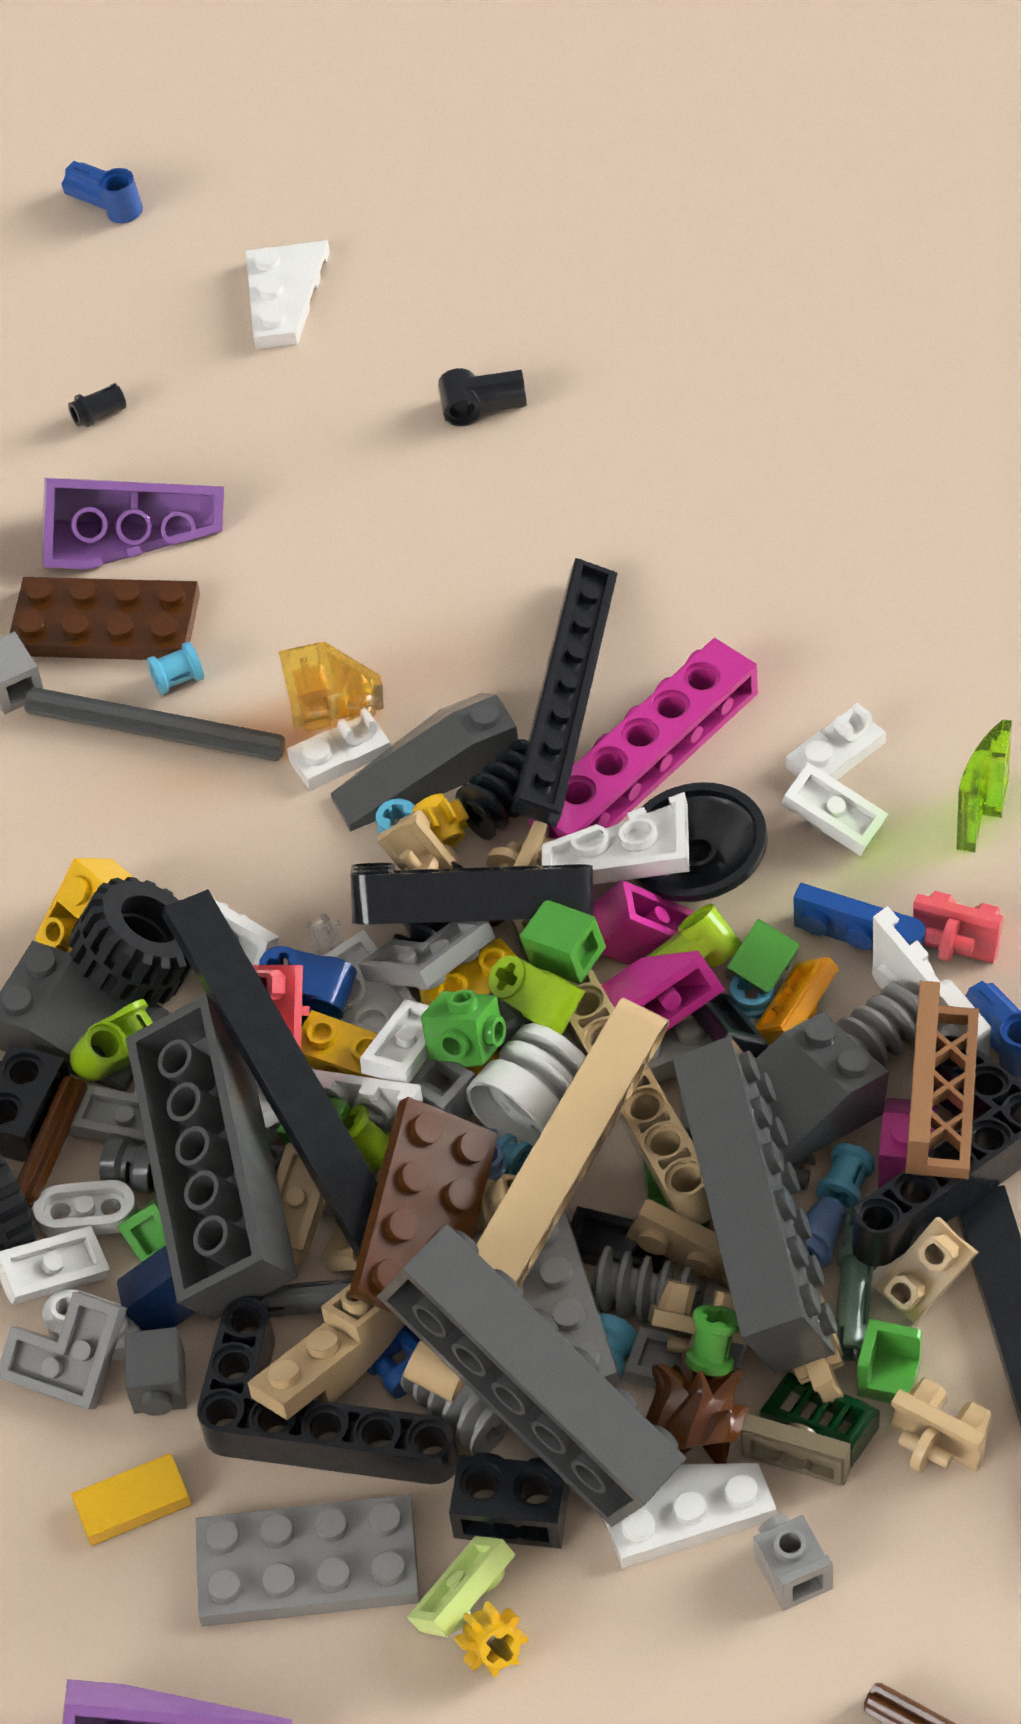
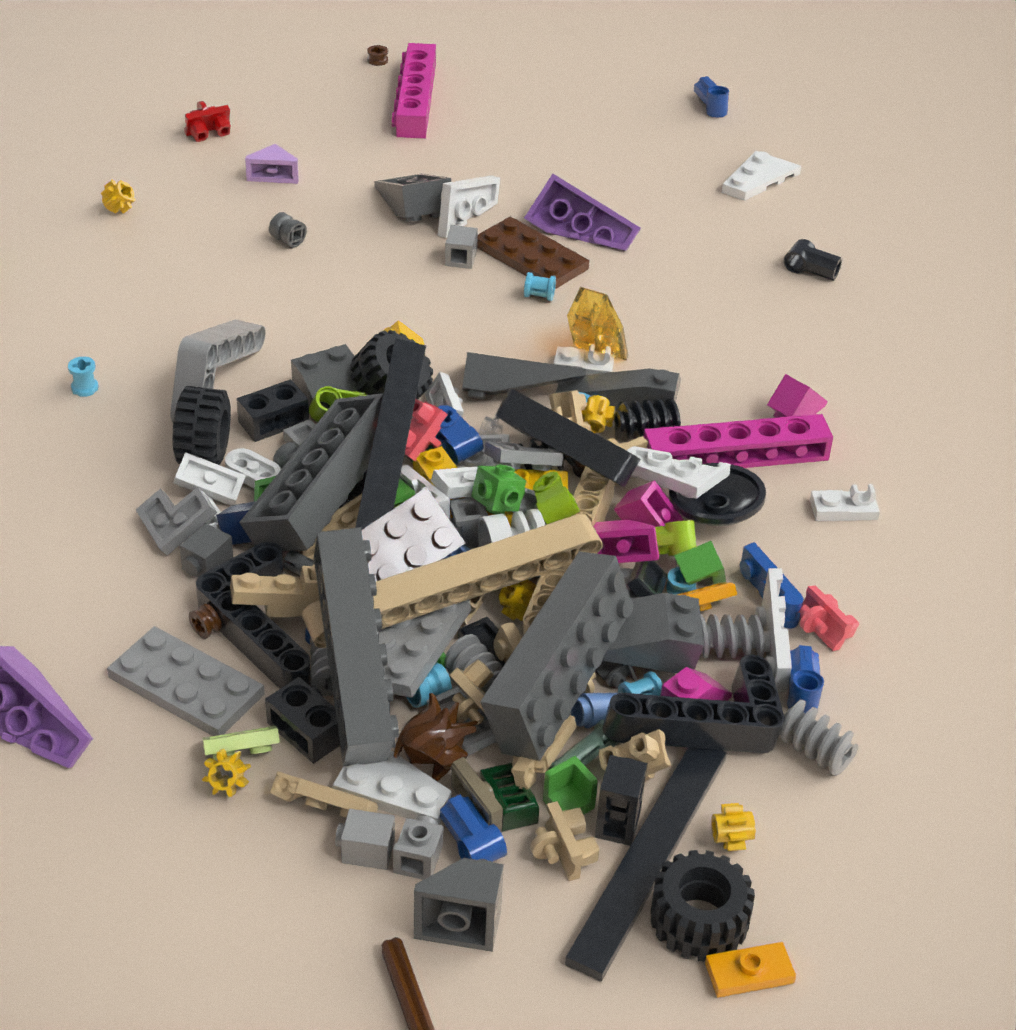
camera: 30 degrees right, 10 degrees down
(51, 1138) = (265, 430): reddish brown axle -> none
(96, 405) = (618, 172): black pin -> none
(131, 1499) = (137, 600): yellow tile -> none
(155, 724) = (508, 304): dark grey axle -> none
(252, 1464) = (205, 621): none -> reddish brown bush
(256, 854) = (498, 374): none -> dark grey wedge
(563, 941) = (592, 484): bright green panel -> none
(564, 693) = (715, 394): black tile -> none
(609, 1162) = (516, 599): none -> yellow gear
(625, 1581) = (318, 796): none -> tan hinge
(657, 638) = (795, 399): none -> dark pink slope
(712, 1340) = (468, 704): bright green bush -> none
(728, 1594) = (366, 839): none -> light grey brick
(834, 809) = (812, 525): white plate -> none
(847, 1502) = (471, 831): none -> blue piece
(925, 1077) = (716, 664): medium nougat fence -> none
(925, 1591) = (460, 904): none -> dark grey slope
(964, 1334) = (620, 800): none -> black brick
(984, 784) = (905, 558): clear neon green slope -> none

